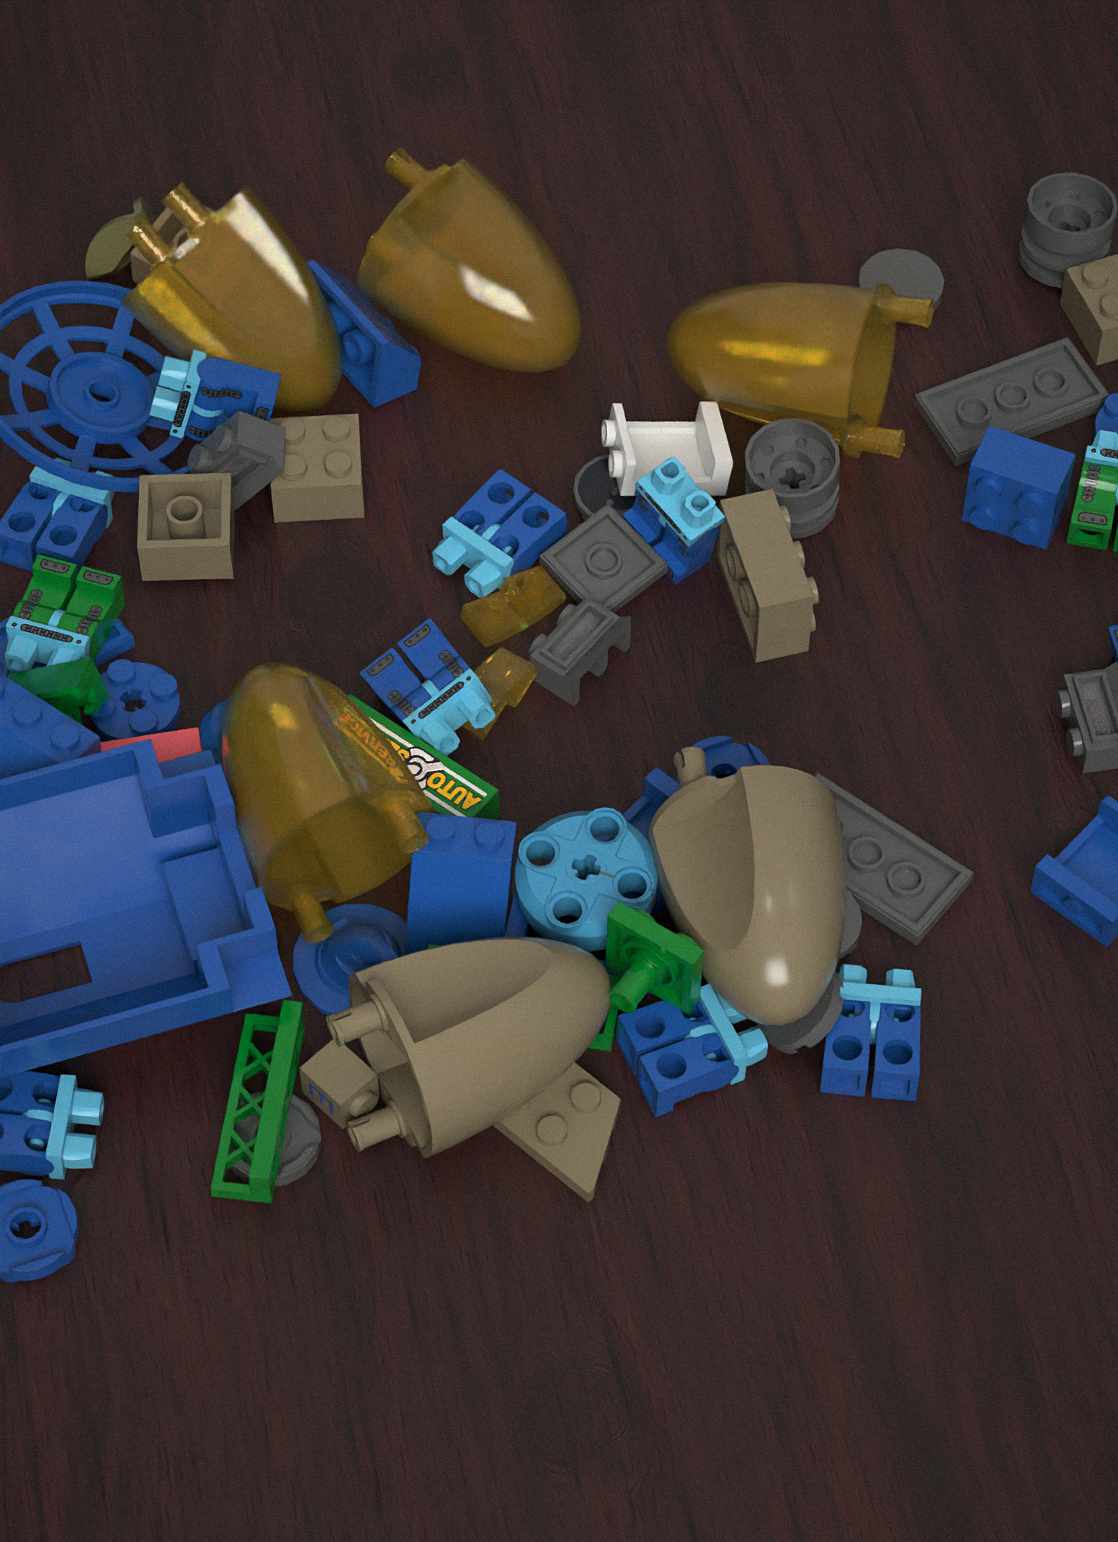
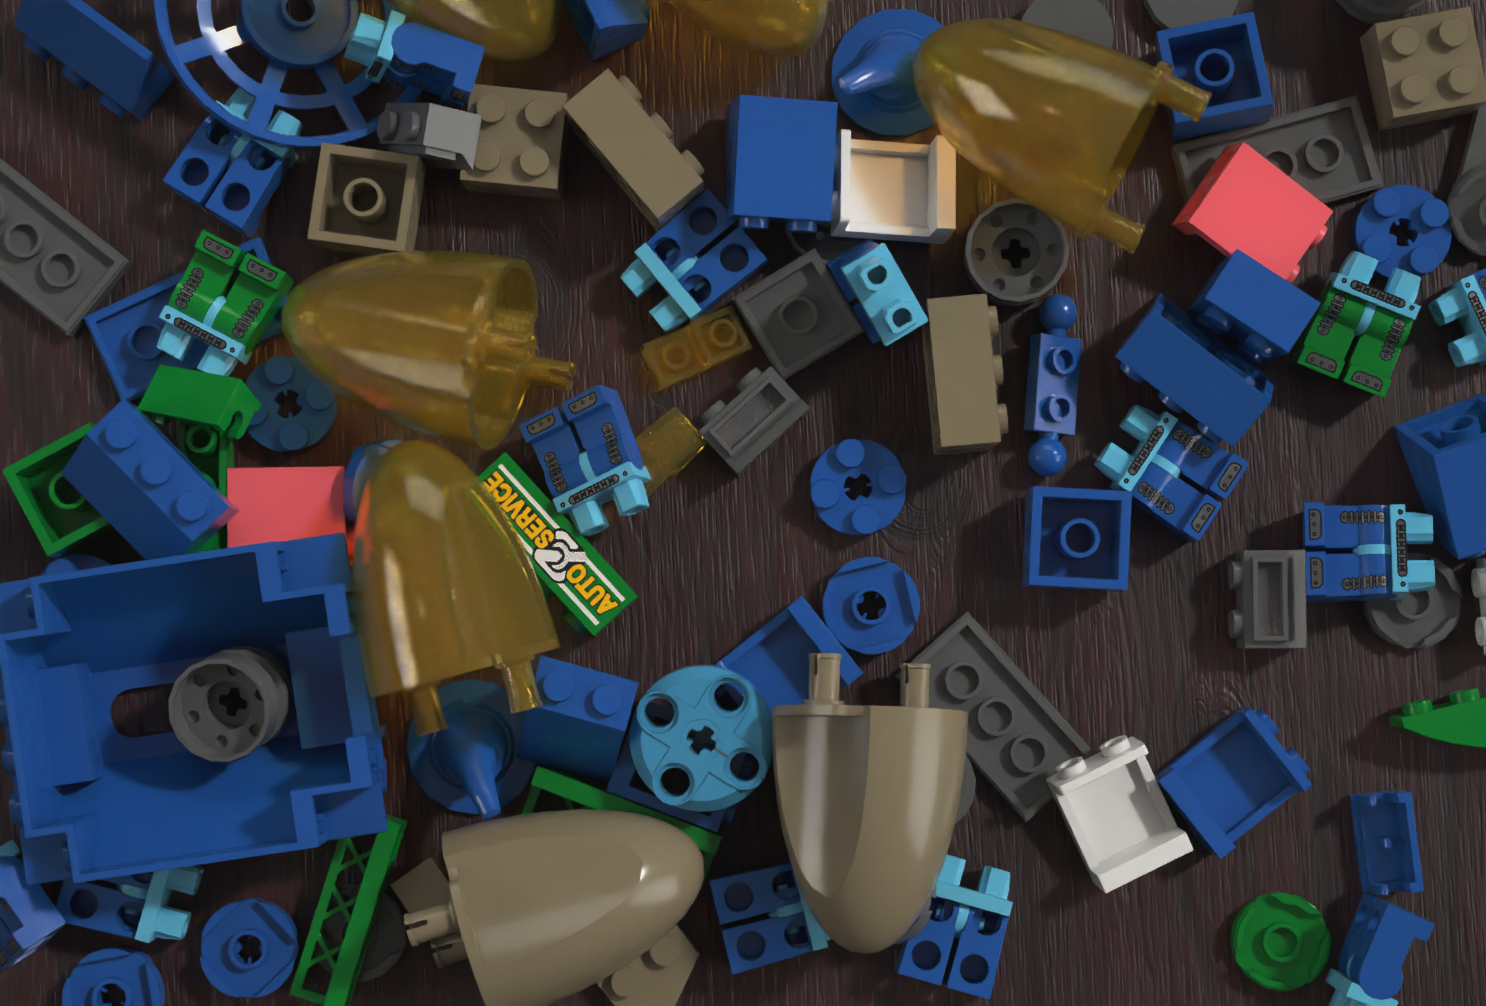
camera: 10 degrees right, 30 degrees up
(100, 910) = (212, 716): none -> dark grey wheel
(165, 1191) = (221, 948): none -> blue plate
(258, 596) = (426, 339): none -> clear yellow windscreen
(424, 447) = (635, 148): none -> dark tan brick
(561, 429) = (780, 162): none -> blue slope
(644, 382) = (875, 72): none -> blue piece
(651, 961) = (743, 862): green plate -> none
(695, 670) = (850, 460): none -> blue plate
(852, 584) = (1052, 385): none -> blue plate
(905, 690) = (1076, 539): none -> blue brick
(954, 342) = (1220, 59): none -> blue brick
(979, 541) = (1195, 372): none -> blue slope
(979, 632) = (1161, 457): none -> hips
(999, 402) = (1255, 209): none -> coral panel
(1001, 908) = (1117, 813): none -> white panel

